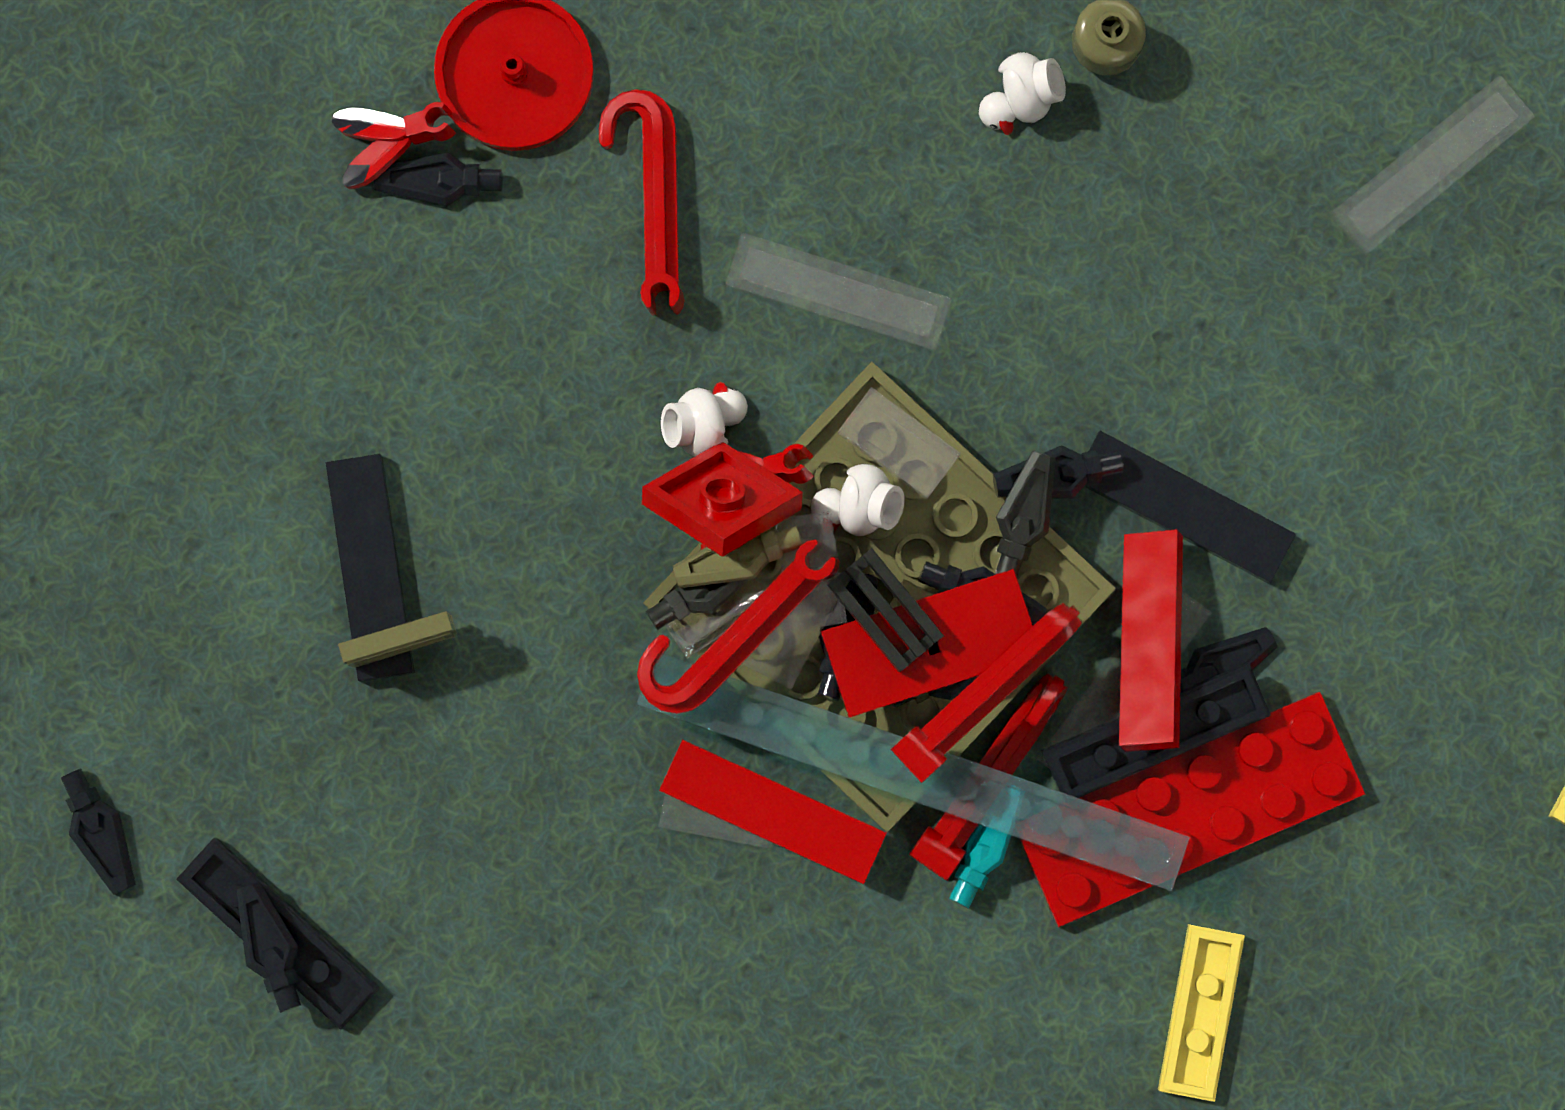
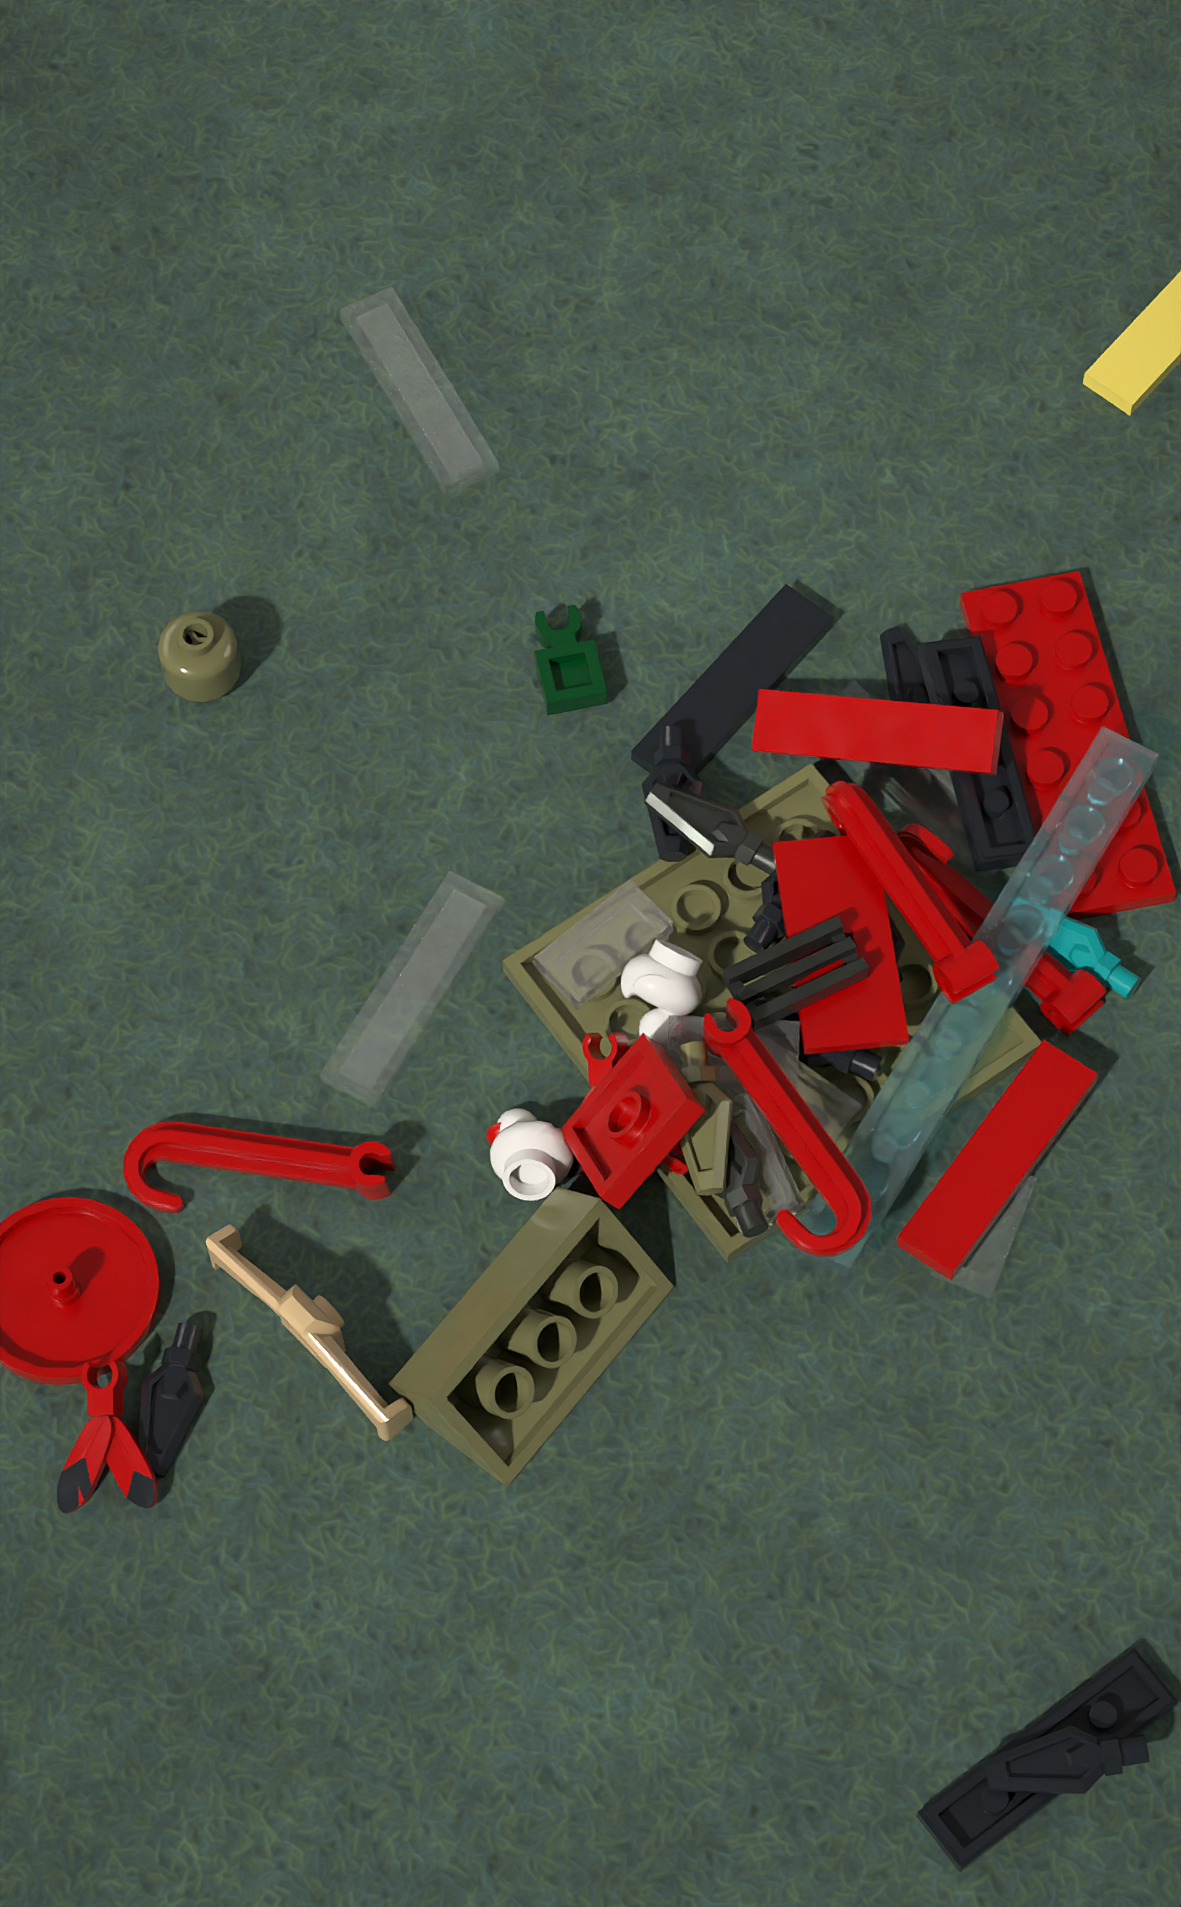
camera: 75 degrees left, 20 degrees down
(368, 556) = (621, 1565): black tile -> none
(398, 639) = (720, 1531): olive tile -> none
(511, 273) = (314, 1325): none -> tan plate
(543, 455) = (533, 1333): none -> olive slope
(1028, 94) = (237, 745): white animal -> none
(1168, 360) = (568, 668): none -> dark green plate

